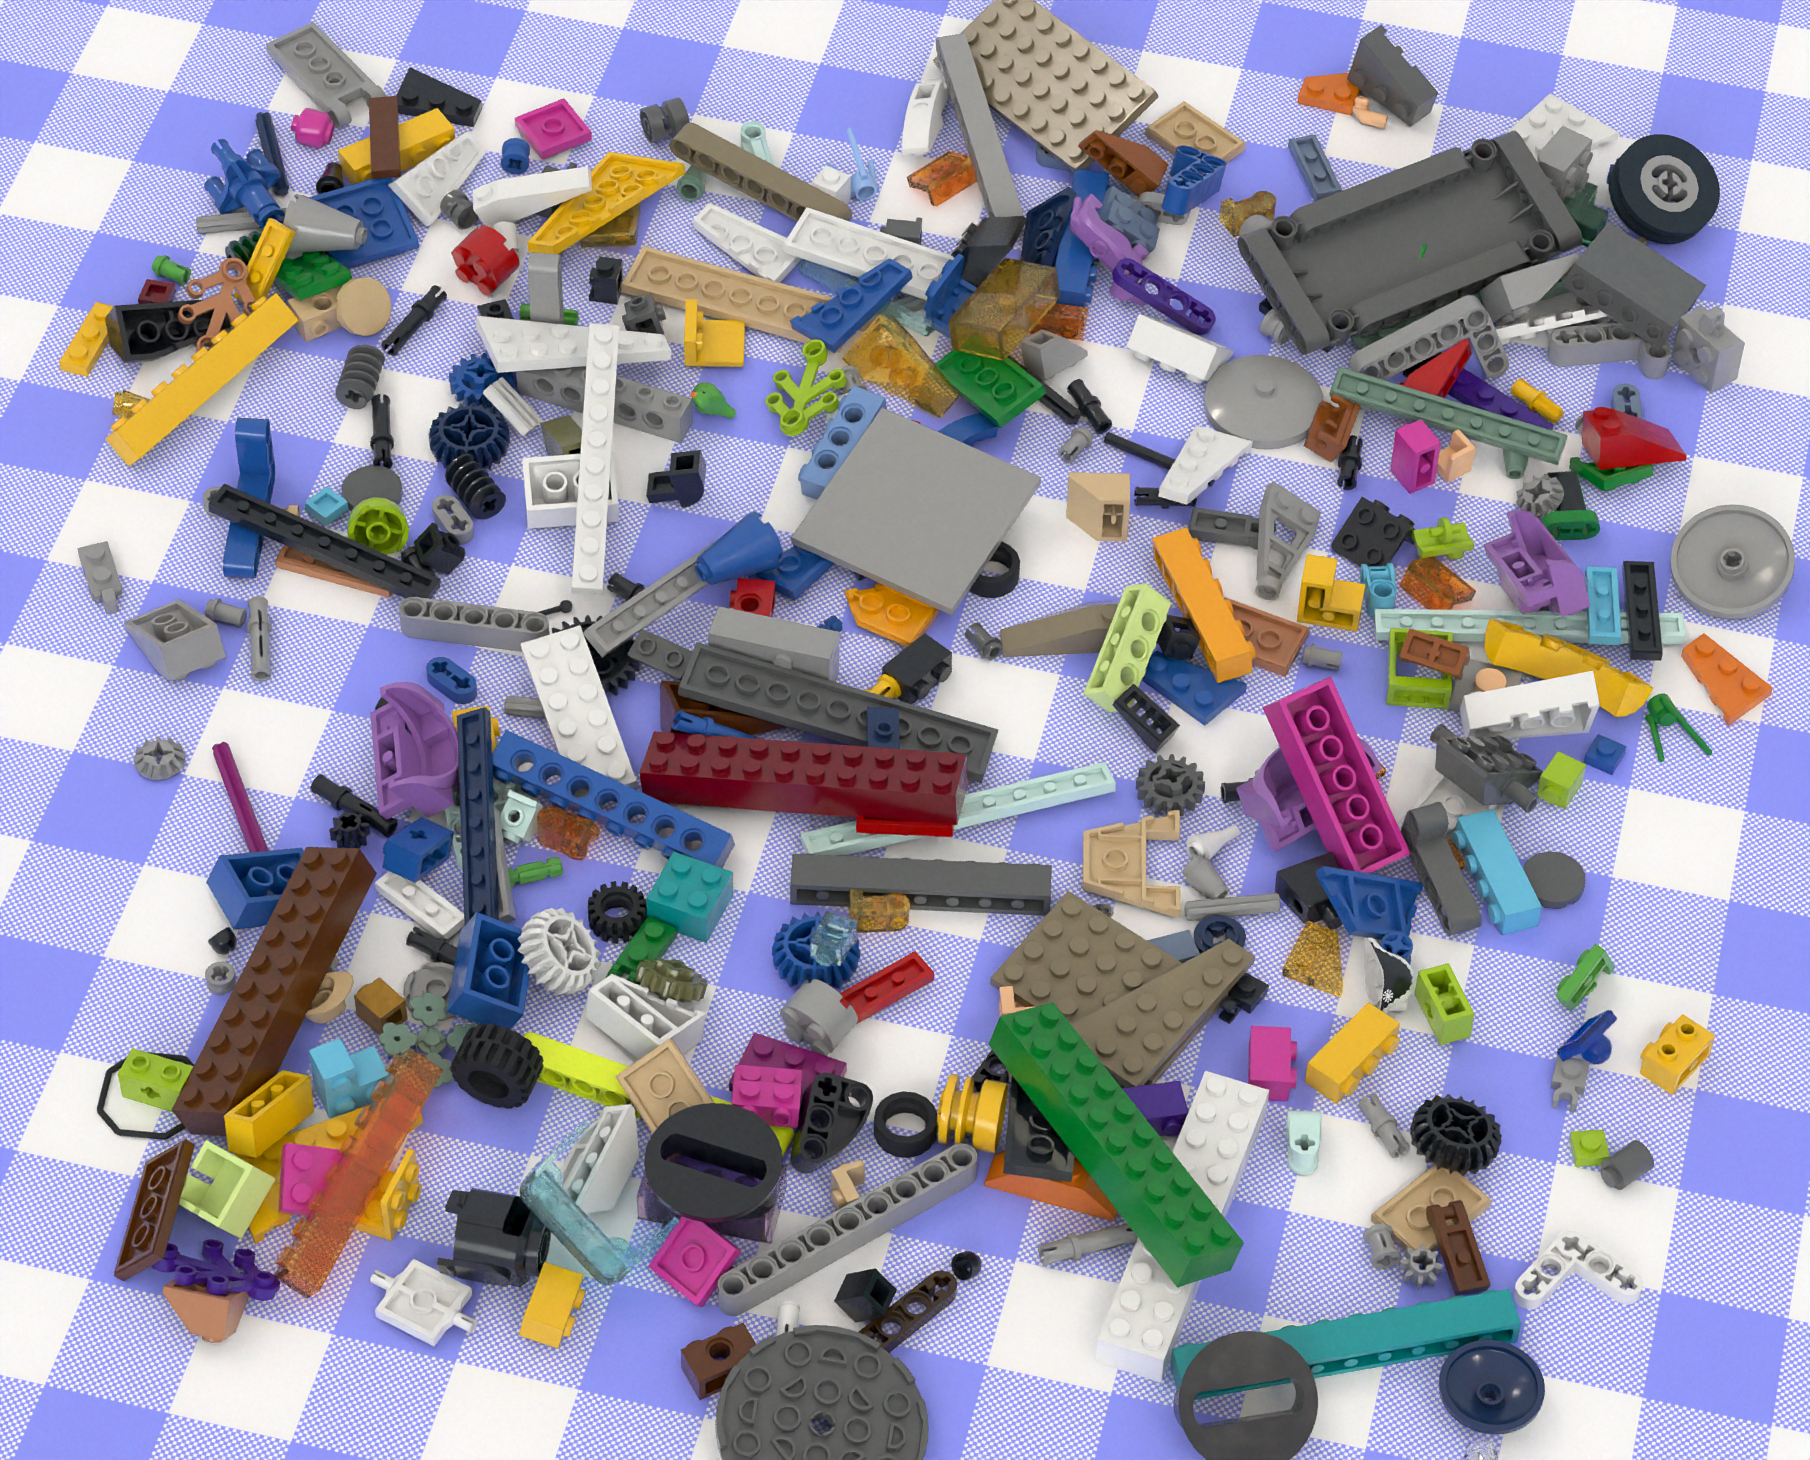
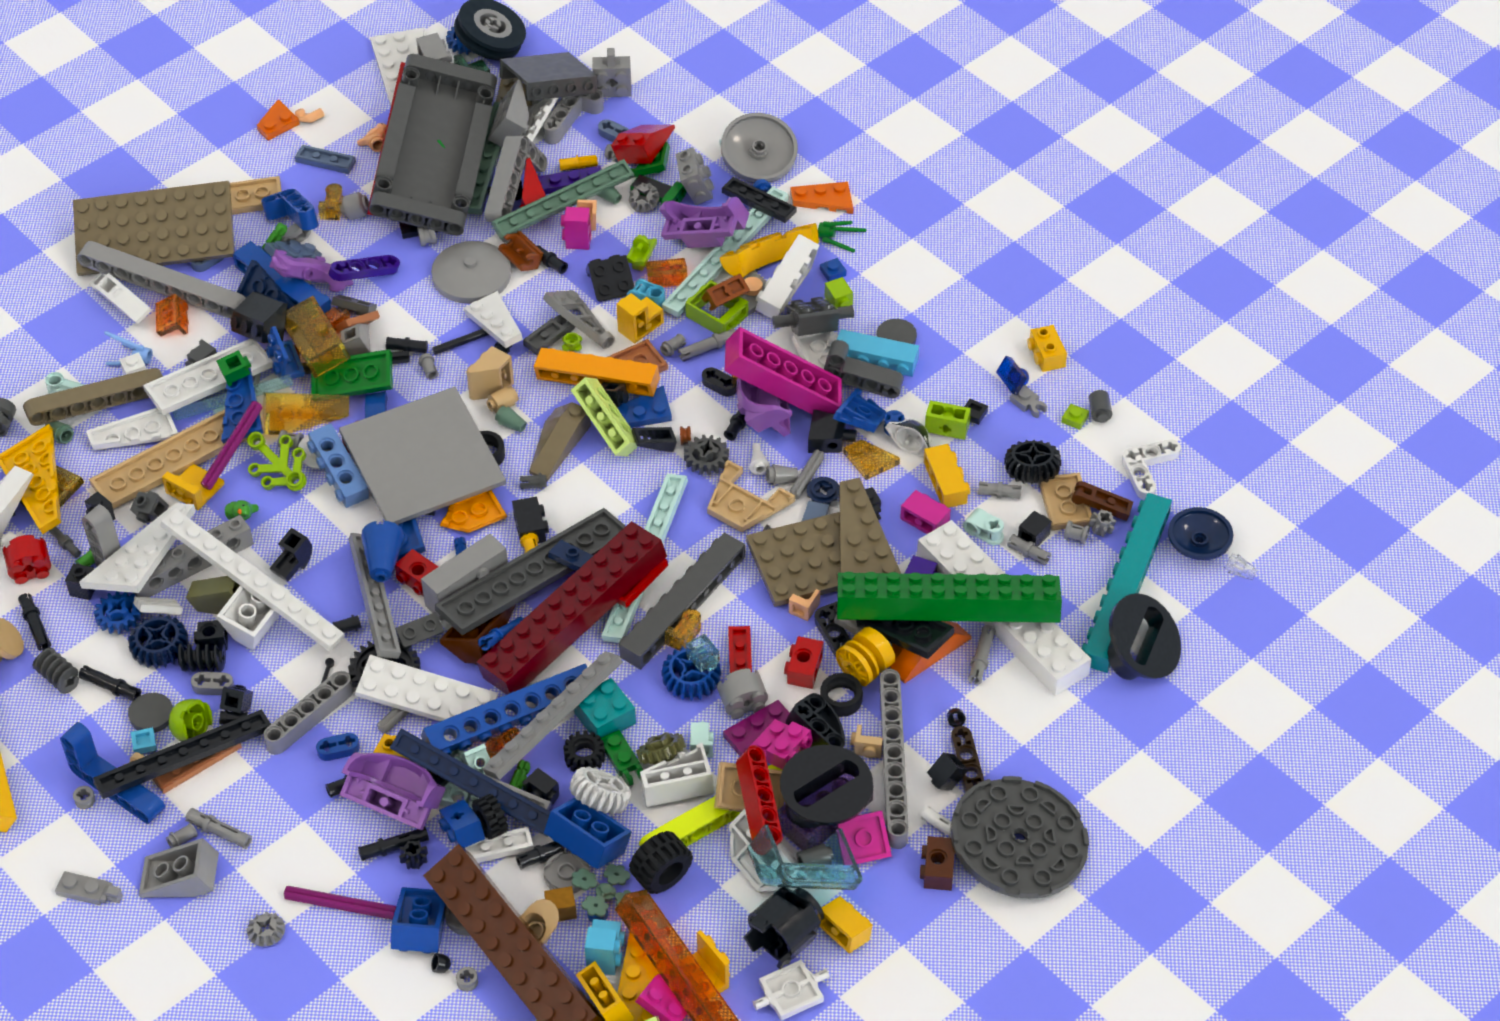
camera: 55 degrees left, 0 degrees up
(437, 865) = (490, 816): none -> black tyre
(509, 477) = (211, 633): none -> black brick
(532, 895) = (542, 786): none -> black brick
(622, 1221) = (816, 855): none -> dark grey brick
(638, 844) = (552, 715): none -> light grey plate
(650, 1094) = (758, 793): none -> red beam
(723, 1015) = (701, 734): none -> light aqua brick
(786, 333) = (231, 445): none -> magenta axle
(881, 261) = (234, 367): none -> green brick
(914, 1072) = (804, 662): none -> red brick
(1060, 563) = (510, 419): none -> sand green cone
(1082, 541) = (504, 397): none -> tan brick
(1084, 341) = (365, 318): none -> nougat tile
(1106, 323) = (360, 306): none -> dark grey plate
(1126, 160) = (251, 227): dark orange slope -> none
(1139, 189) = (276, 234): none -> bright green axle
(1177, 348) = (403, 285): white slope -> none
(1184, 746) = (685, 434): none -> dark orange bush
(1237, 557) = (572, 342): none -> lime plate
(1309, 1208) = (1029, 549): none -> light grey pin
(1345, 1196) = (1035, 528): none -> black brick
(1365, 696) = (705, 345): none -> light grey pin
(1390, 79) = (301, 90): dark grey wedge -> none
(1493, 1029) = (978, 410): none -> black plate
(1582, 981) = (974, 355): bright green wing -> none
(1604, 608) = (757, 217): medium azure plate -> none
(1612, 521) = (695, 175): none -> light grey brick
(1671, 602) = (763, 185): none -> blue plate

